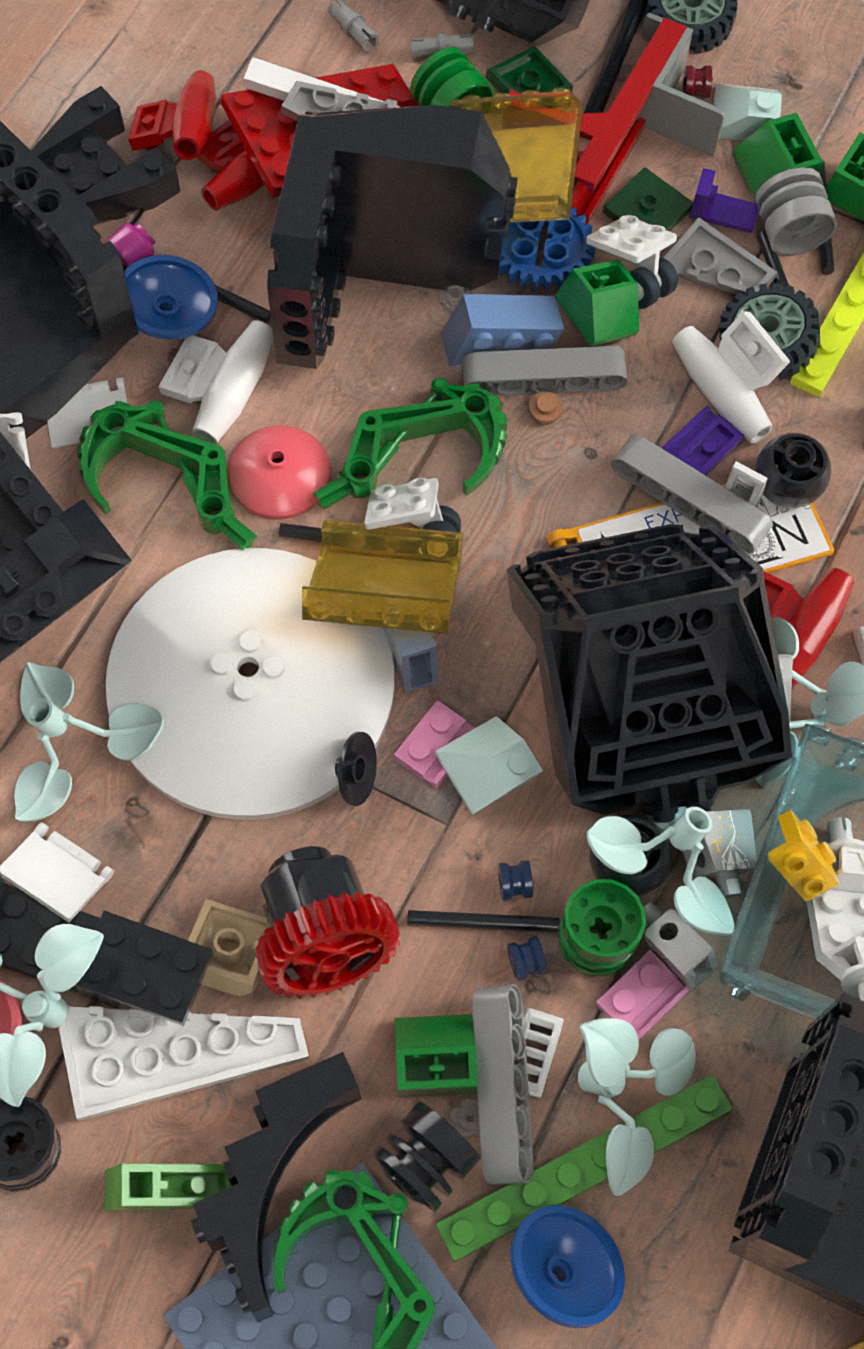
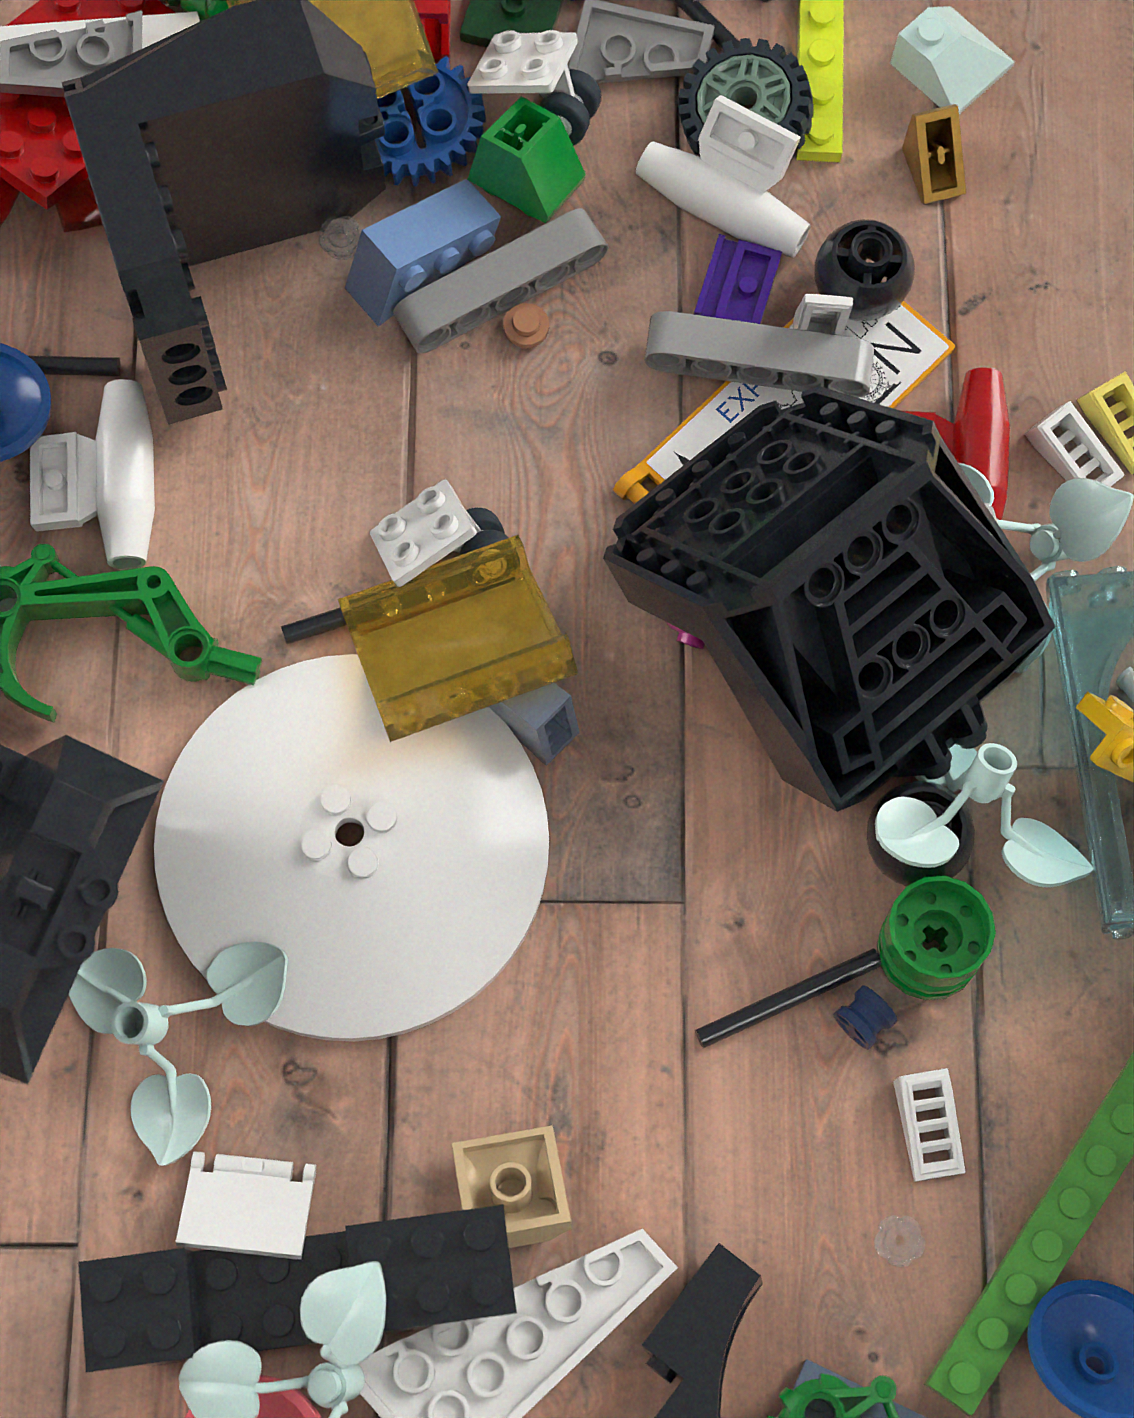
camera: 30 degrees left, 5 degrees up
(283, 487) = (247, 587): coral dish -> none
(321, 925) = (614, 1104): red piece -> none
(356, 768) = (546, 892): black dish -> none
(383, 429) = (365, 427): green piece -> none
(426, 1156) = (882, 1314): black wheel -> none
(433, 732) = (619, 811): bright pink plate -> none
(435, 1055) = (823, 1186): green slope -> none
(488, 764) = (698, 805): light aqua slope -> none
(502, 1085) = (920, 1182): light grey beam -> none
(515, 880) = (802, 930): dark blue wheel -> none
(609, 1050) = (1041, 1107): light aqua plant -> none
(643, 994) = (1016, 993): bright pink plate -> none
(684, 955) = (1047, 926): light grey torso -> none
(726, 850) = (1036, 774): light grey torso -> none

